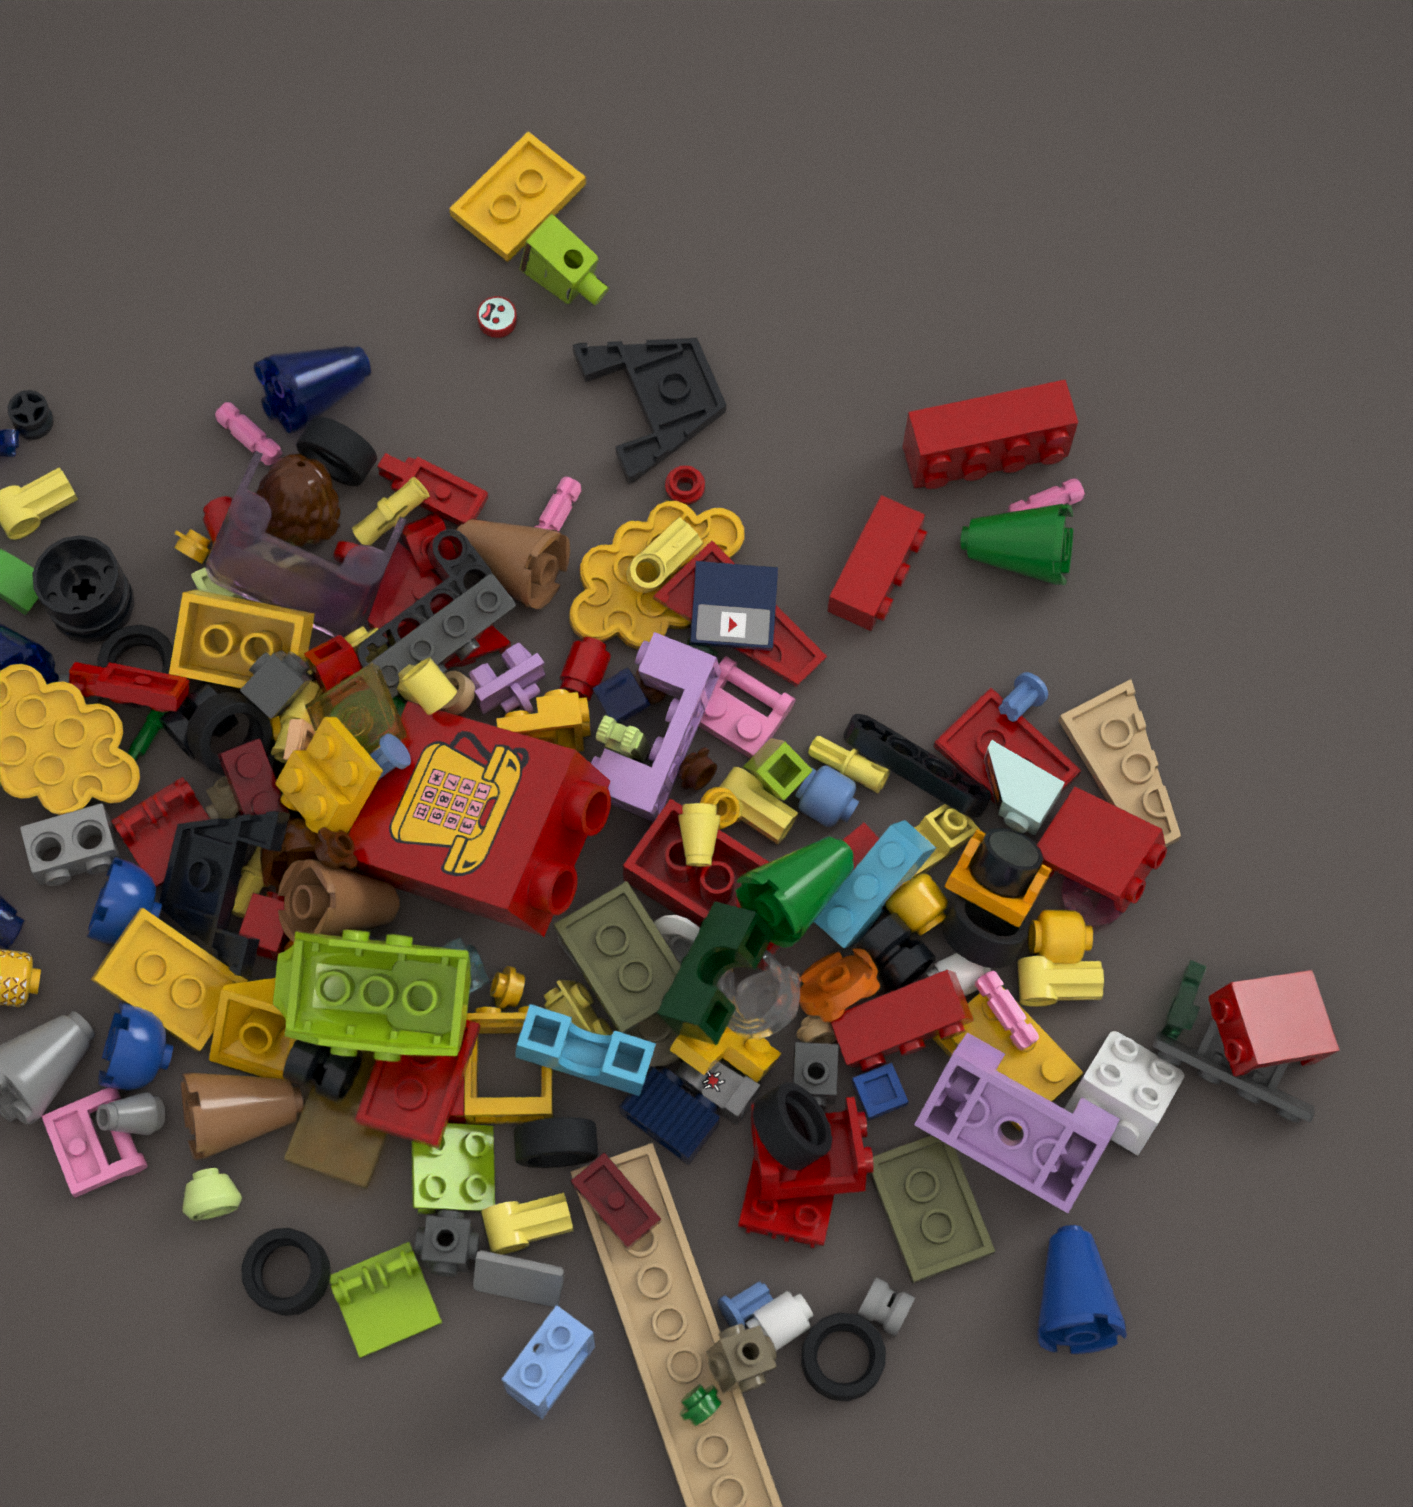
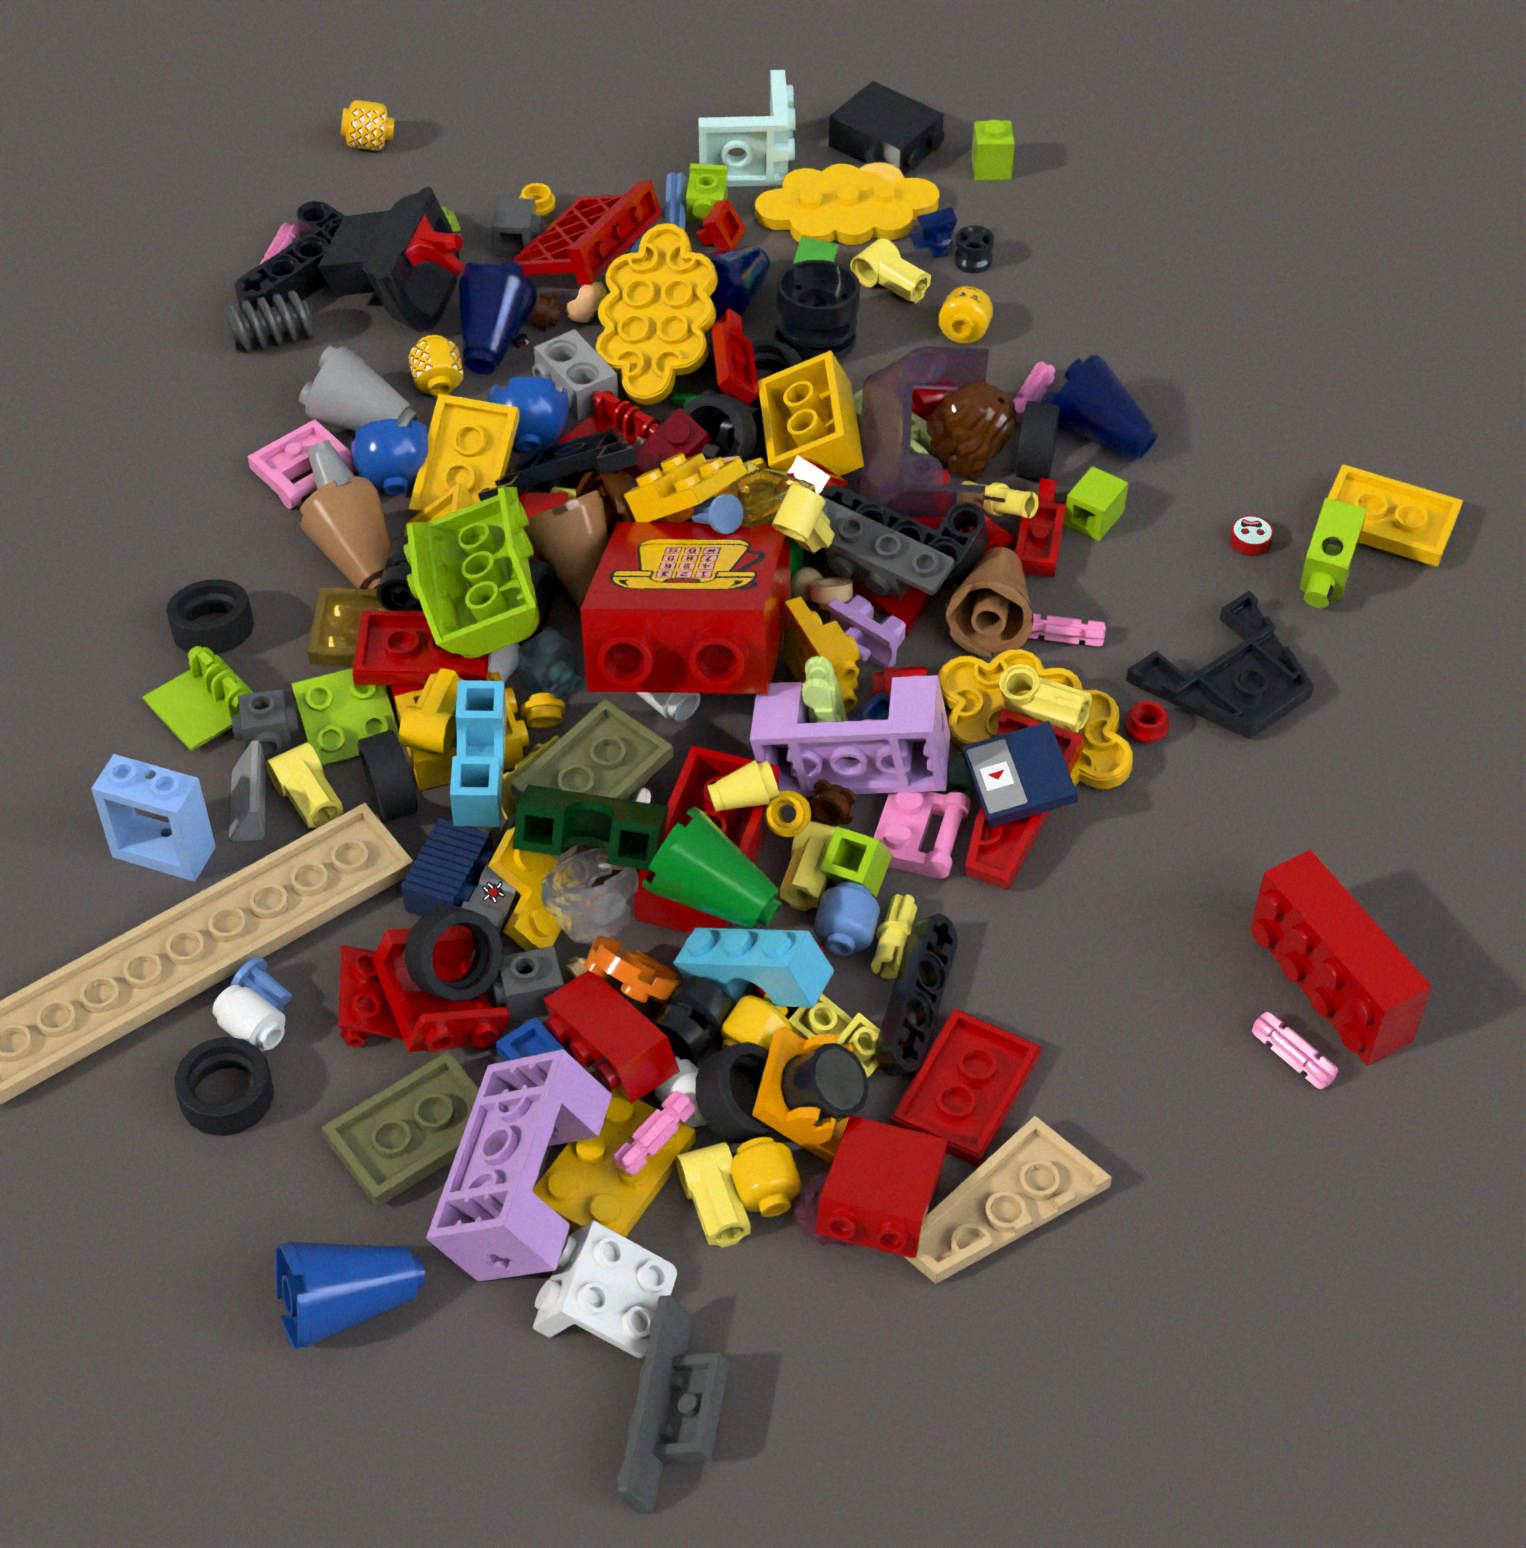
camera: 75 degrees right, 20 degrees down
(127, 454) = (965, 315): none -> yellow head
(210, 1195) = (271, 547): yellowish green cone -> none
(276, 682) = (771, 438): dark grey brick -> none
(335, 849) = (604, 506): reddish brown plate -> none
(419, 428) = (1095, 503): none -> lime brick
(523, 1086) = (432, 720): none -> yellow piece
(616, 1201) = (337, 836): dark red plate -> none
(700, 1404) = (138, 955): green plate -> none
(734, 1369) = (191, 974): dark tan brick -> none
(877, 564) = (1138, 902): red brick -> none
(886, 1306) = (288, 1108): light grey wheel -> none
(1020, 789) = (921, 1086): light aqua slope -> none
(1023, 542) = (1231, 1035): green cone -> none
(1027, 692) = (1039, 1073): medium blue piece -> none
(1182, 1010) = (728, 1325): clear green plate -> none
(1273, 1022) = (731, 1415): panel -> none

